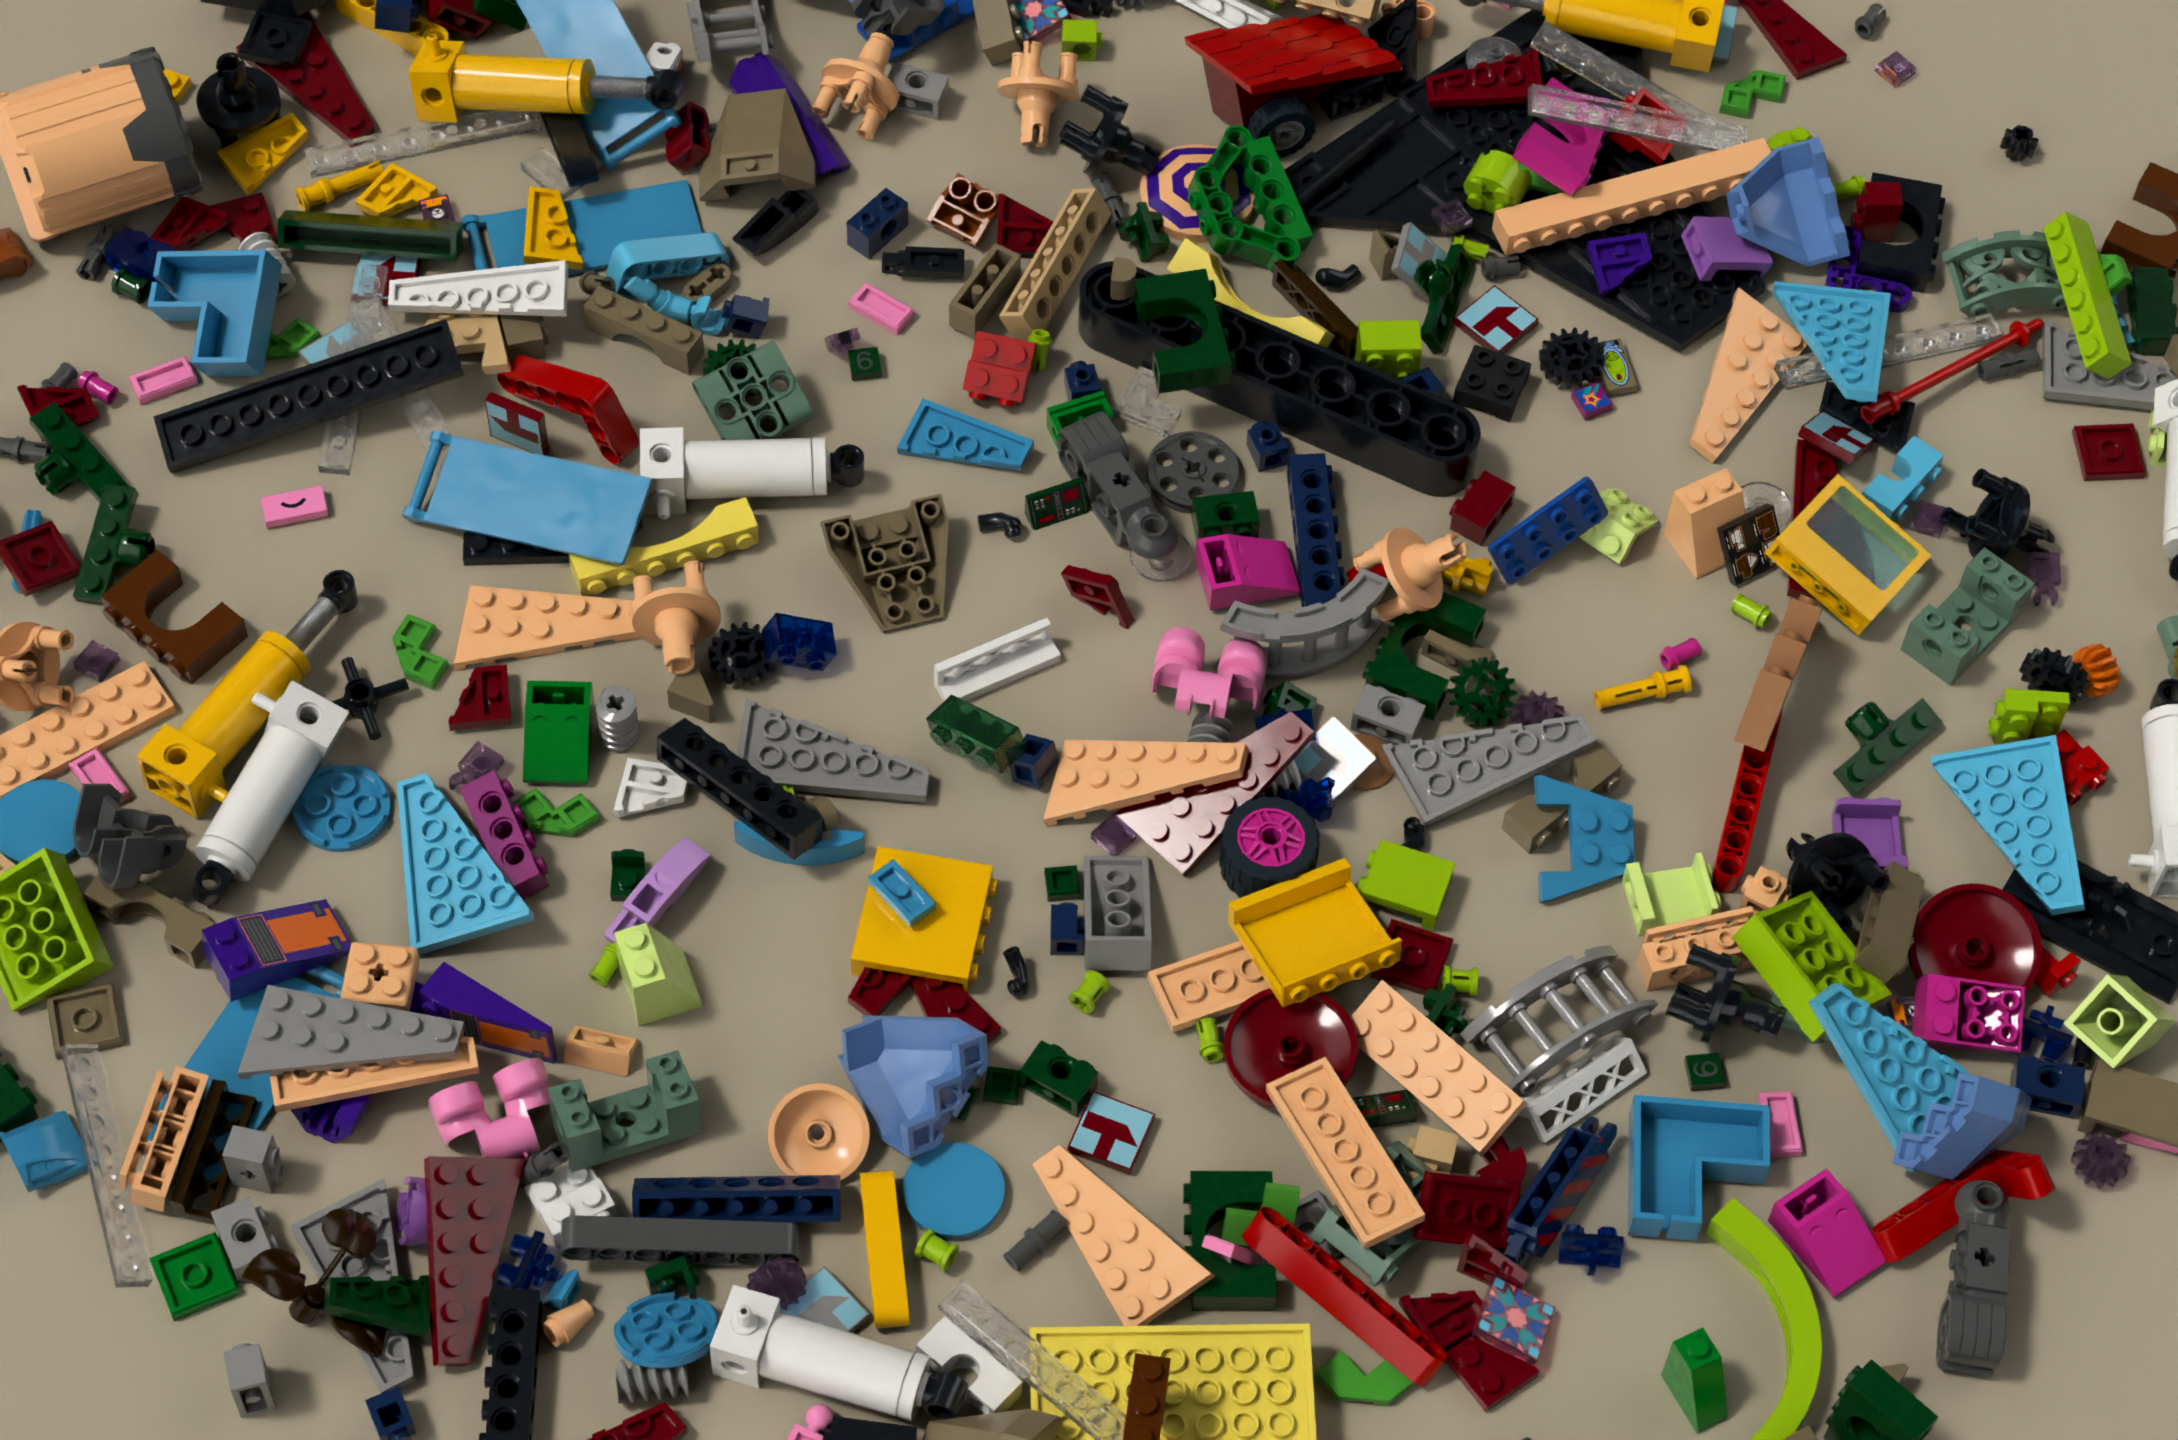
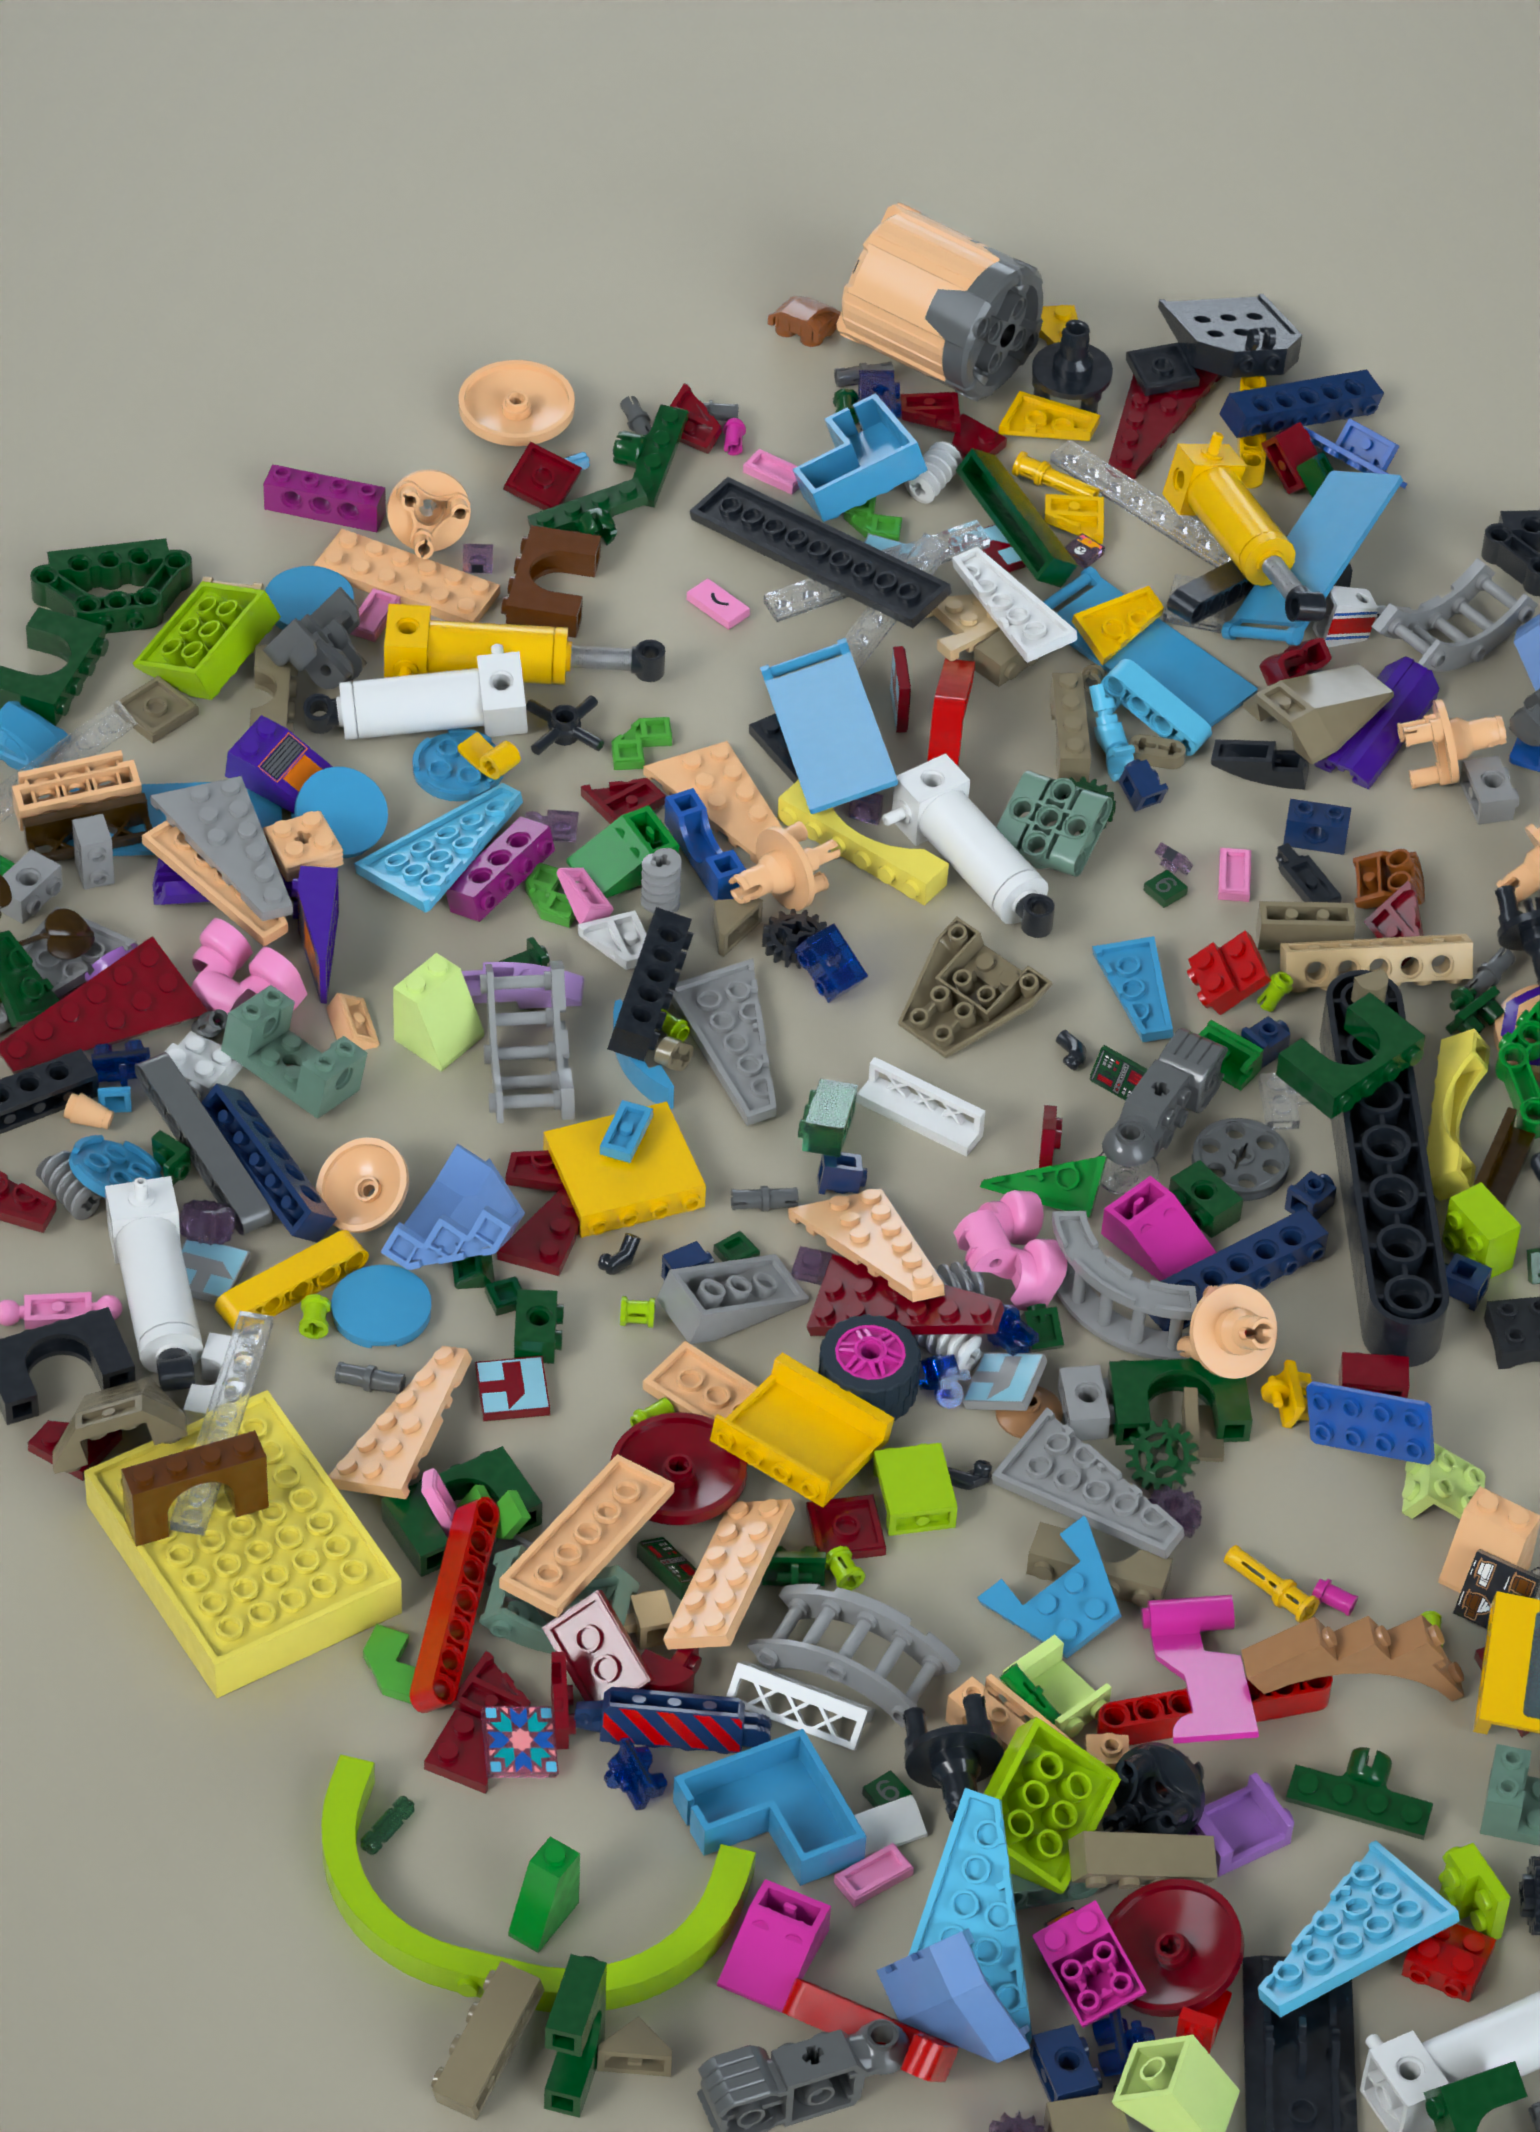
camera: 60 degrees right, 10 degrees down
(343, 915) = (349, 804): none -> dark azure tile
(368, 777) = (488, 759): none -> yellow panel
(584, 787) = (584, 897): none -> bright pink slope
(632, 667) = (690, 827): none -> blue arch
(752, 900) = (557, 1050): none -> light grey fence
(1020, 831) = (764, 1198): none -> dark grey pin
(1149, 611) = (1061, 1186): none -> green wing
(1676, 912) = (1032, 1694): none -> green pin
(1725, 775) = (1212, 1679): none -> door
(1740, 1080) = (891, 1823): none -> white slope

